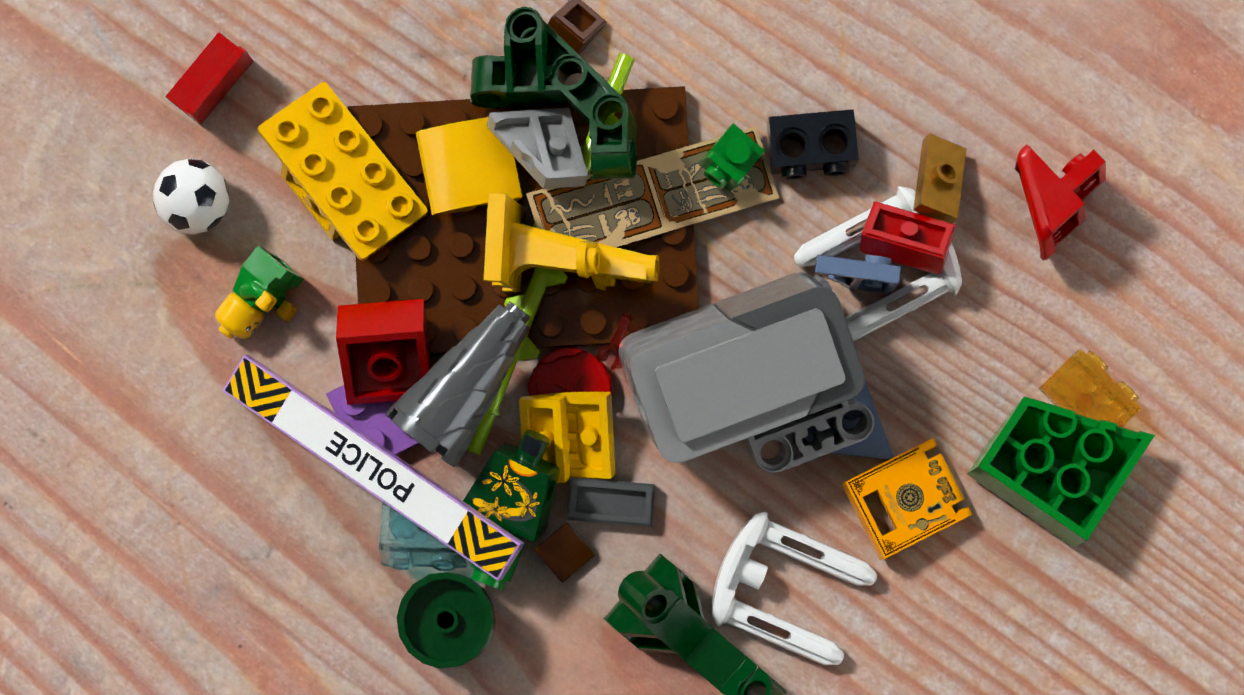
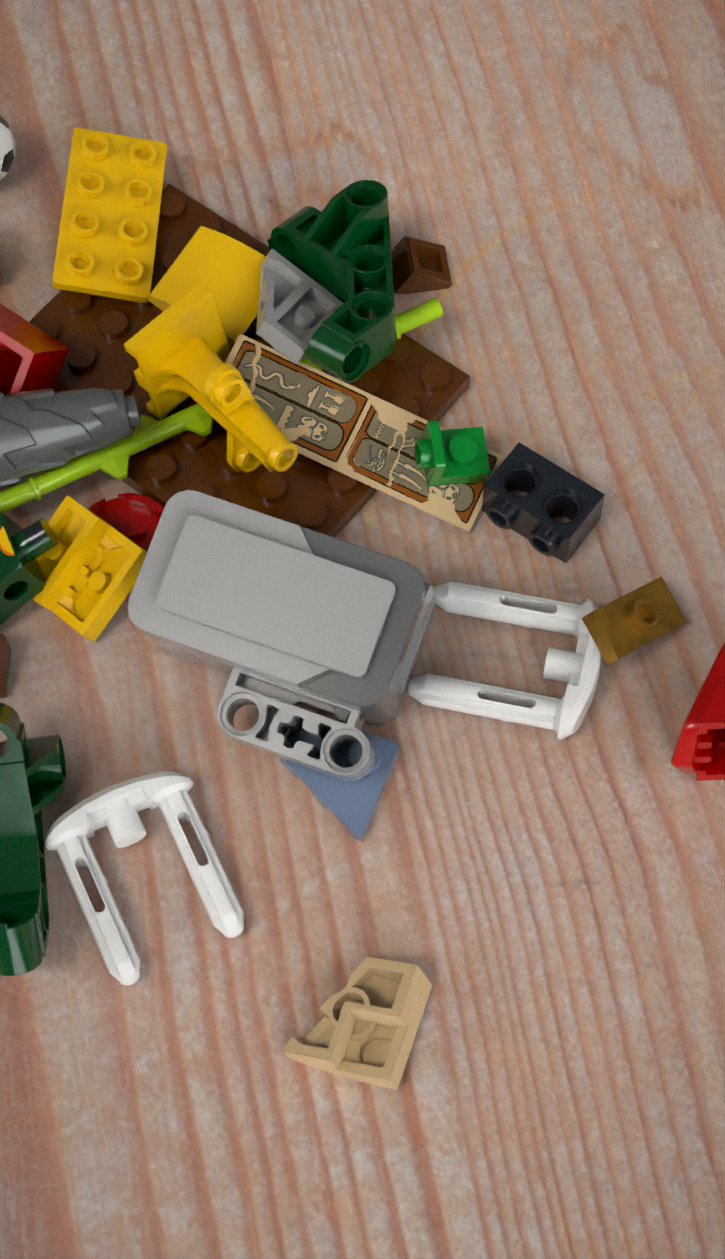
camera: 40 degrees right, 20 degrees down
(209, 78) = (83, 90): red panel -> none
(610, 502) = (65, 662): dark grey tile -> none
(871, 275) = (483, 638): sand blue wing -> none
(907, 237) = (553, 640): red slope -> none
(915, 495) = (347, 886): light orange container -> none
(996, 565) = (368, 1024): none -> tan slope
(1059, 466) = (516, 972): green wedge -> none
(1089, 391) = (611, 943): clear yellow bracket -> none

